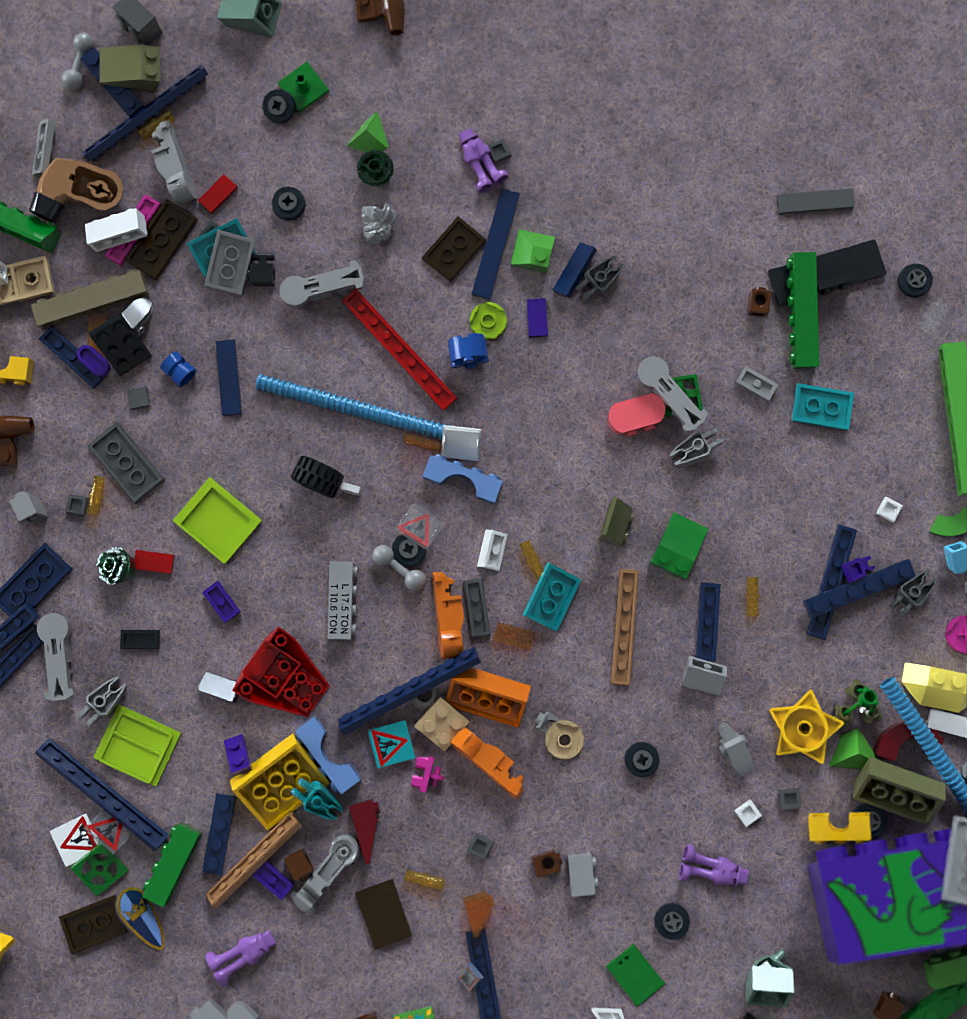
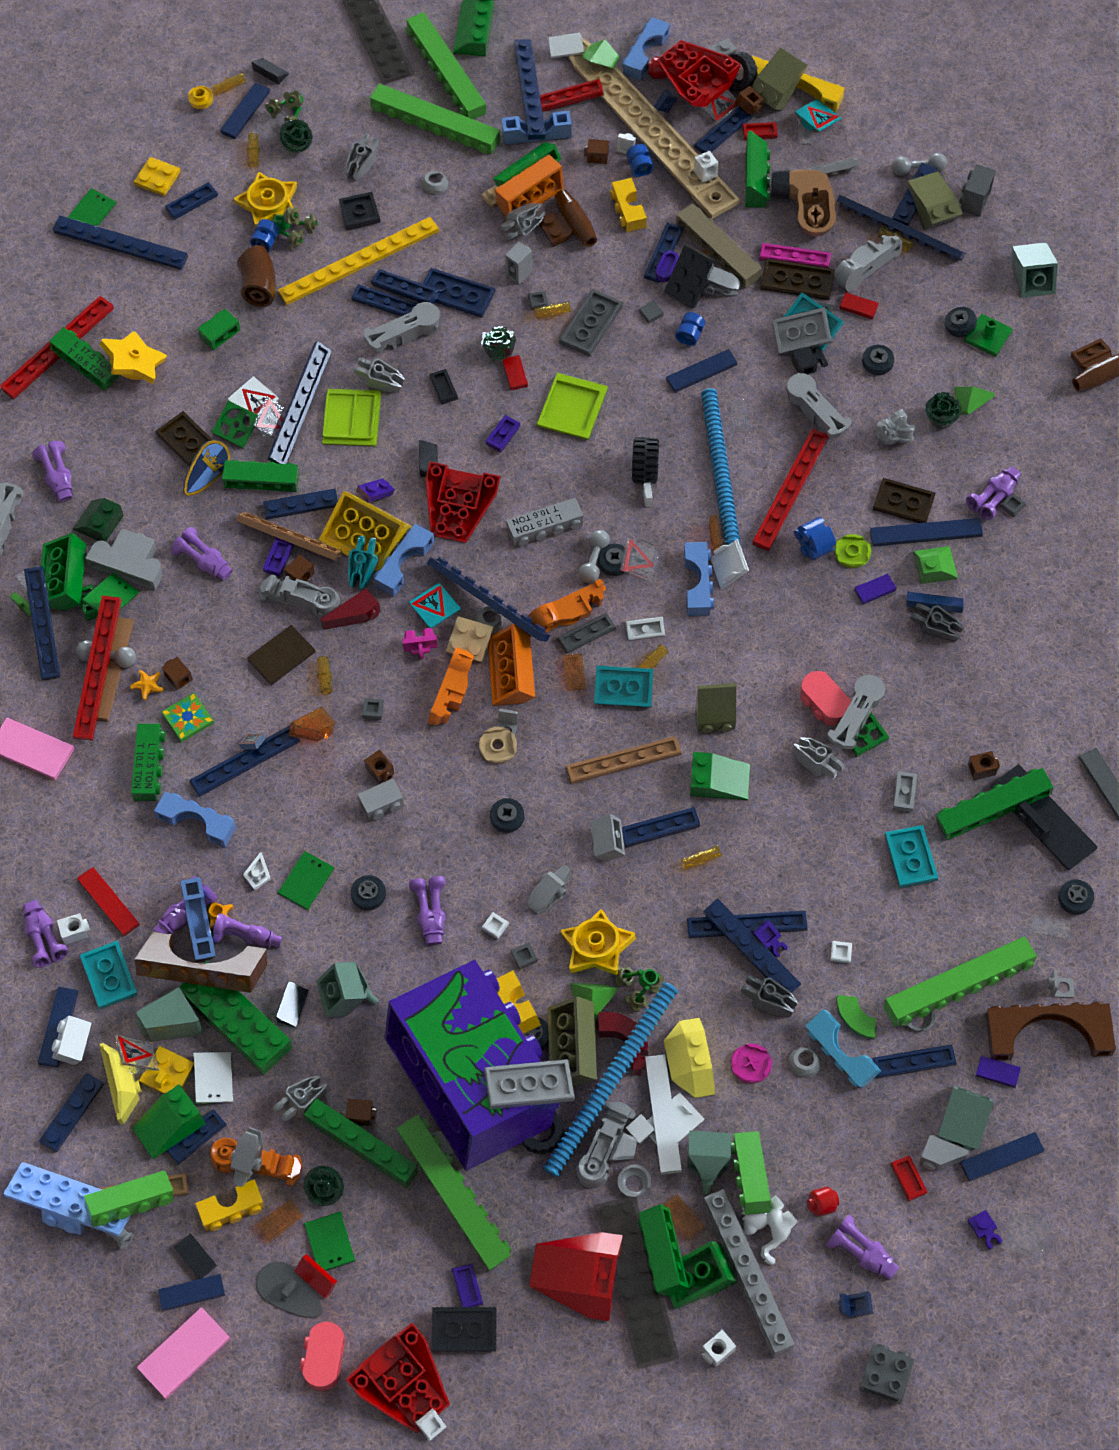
camera: 65 degrees right, 20 degrees down
(116, 229) = (787, 240): white brick -> none

